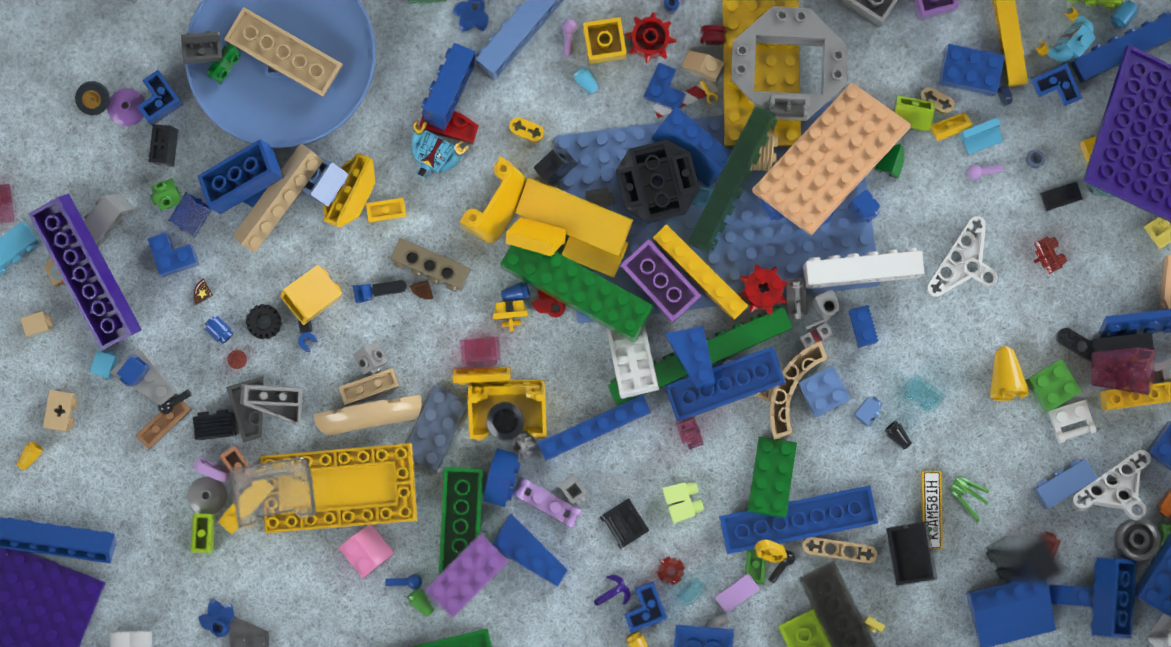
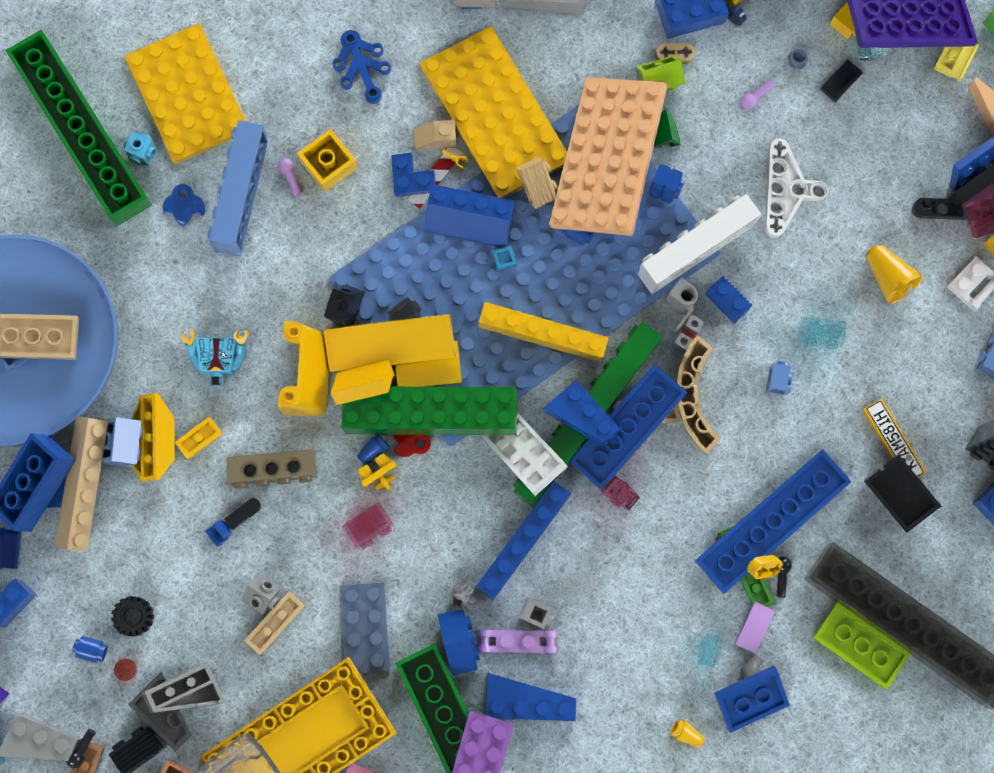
camera: 30 degrees left, 5 degrees down
(133, 370) = (19, 741): blue brick -> none
(202, 292) = (53, 620): reddish brown tile -> none
(306, 335) = (177, 597): blue piece -> none
(311, 294) = (166, 562): yellow brick -> none
(368, 415) = (289, 652): tan brick -> none
(422, 290) = (278, 497): reddish brown tile -> none
(448, 86) = (196, 282): blue brick -> none
(458, 128) = (215, 319): red wing -> none
(481, 375) = (382, 550): yellow plate -> none
(505, 421) = (431, 582): black hat -> none
(524, 133) = (296, 281): yellow beam -> none
(525, 394) = (426, 568): yellow windscreen -> none
(586, 80) = (330, 208): medium azure cone -> none
(621, 587) = (634, 693): dark purple piece -> none
(629, 518) = (608, 612): black plate -> none
(651, 610) = (681, 693): blue brick -> none
(659, 32) = (374, 124): red brick -> none
(660, 161) = (459, 244): black piece -> none
(660, 281) = (509, 360): medium lavender brick -> none
(663, 570) = (670, 641): clear red brick -> none
(685, 509) = (657, 573): yellowish green hips -> none
(713, 34) = (429, 101): dark red wheel -> none
(732, 177) = (524, 221): clear green brick -> none
(761, 278) = (619, 304): red brick -> none
(772, 477) = (724, 493): green plate -> none
(790, 27) = (503, 52): light grey hinge -> none
(796, 298) = (649, 307): light grey hinge -> none
(823, 391) = (726, 383): medium blue brick -> none
(839, 550) = (827, 526): tan beam -> none
(873, 625) = (905, 583): light yellow plate -> none
(897, 433) = (819, 385): black cone -> none
(950, 126) = (702, 69): yellow plate -> none
(961, 486) = (910, 401): bright green plant -> none
(982, 136) = (736, 64): medium azure panel -> none
(1048, 256) = (863, 140): clear red hips -> none
(1053, 385) = (940, 258): bright green brick -> none

